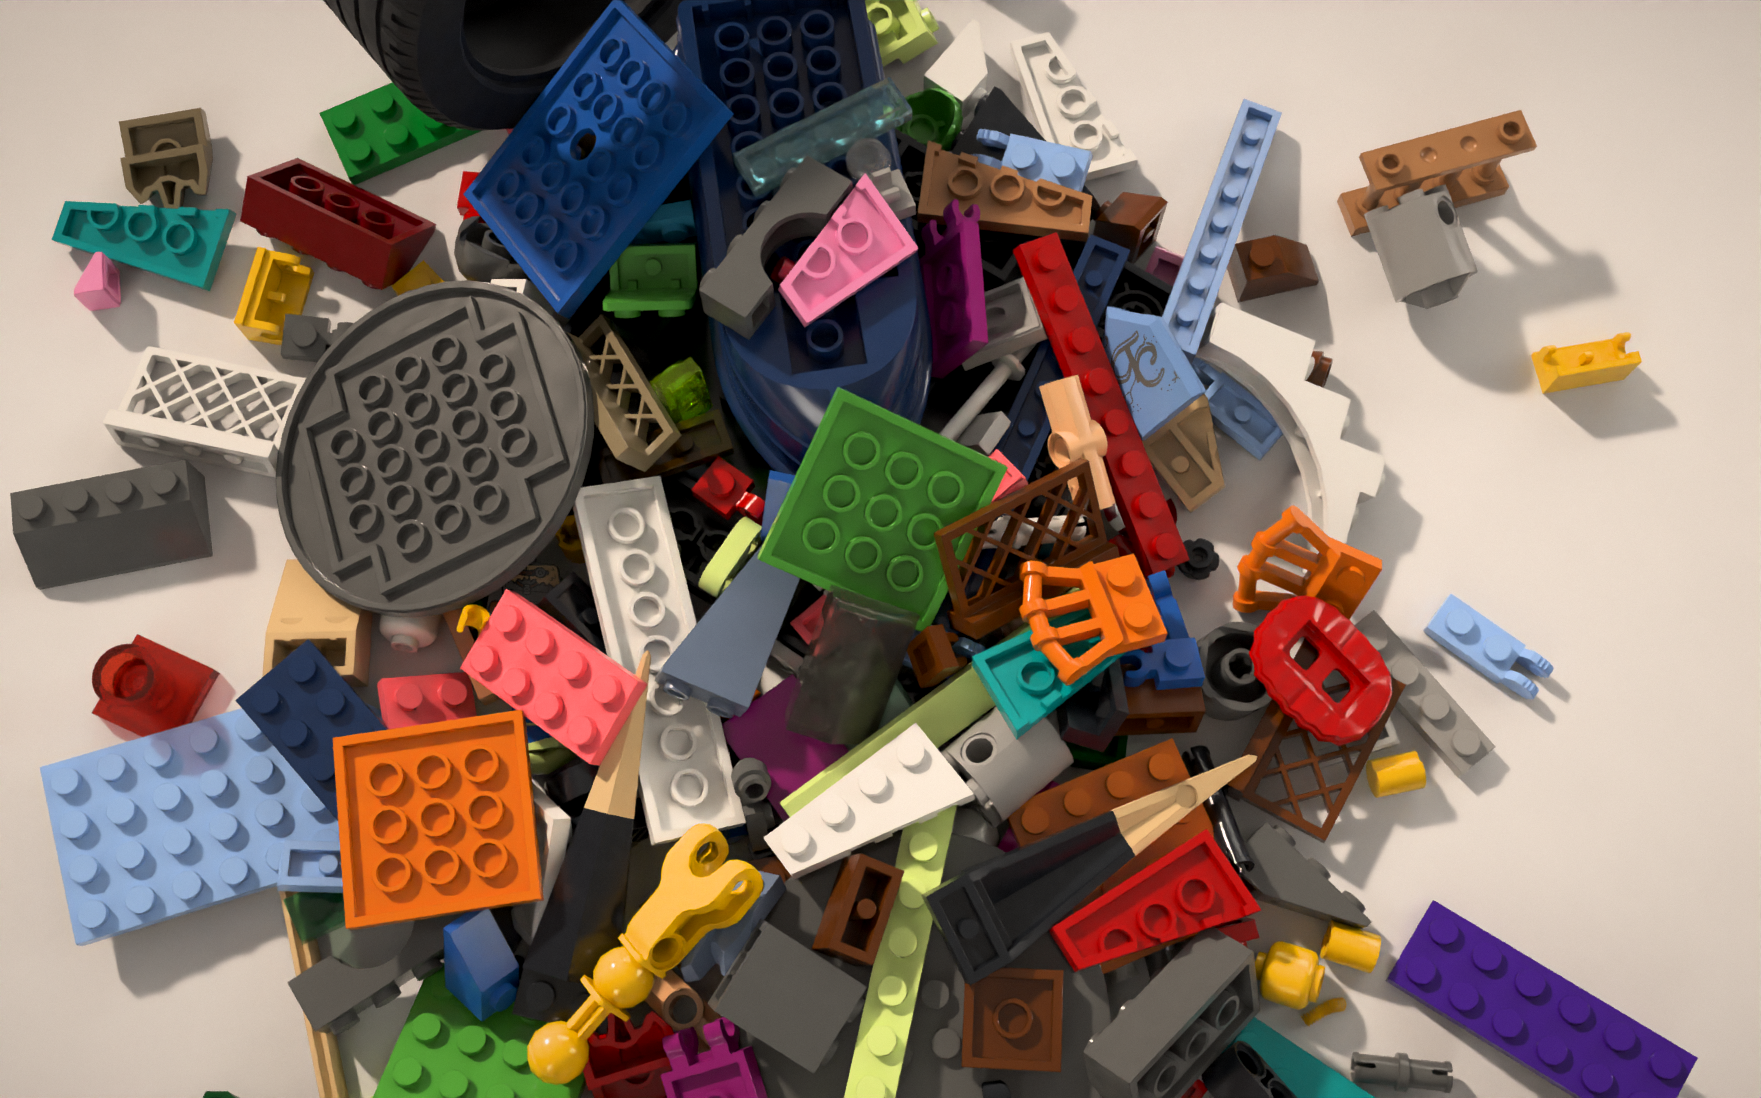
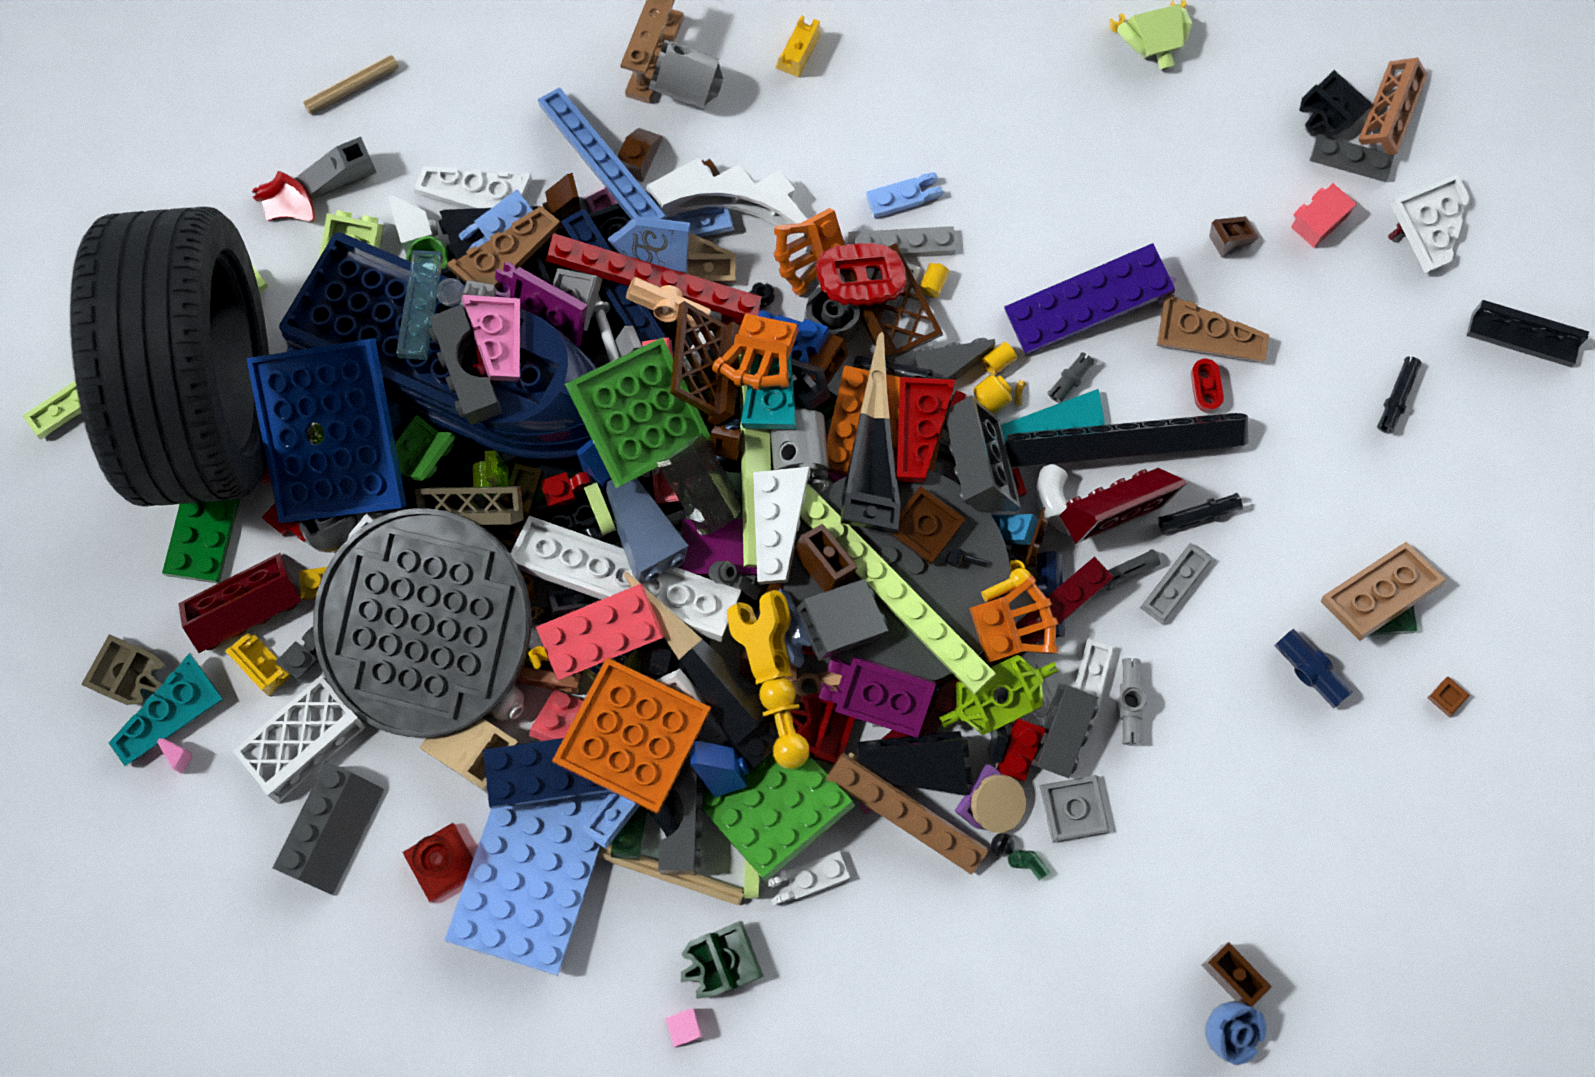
camera: 55 degrees left, 0 degrees up
(384, 943) = (667, 817): none -> black cone

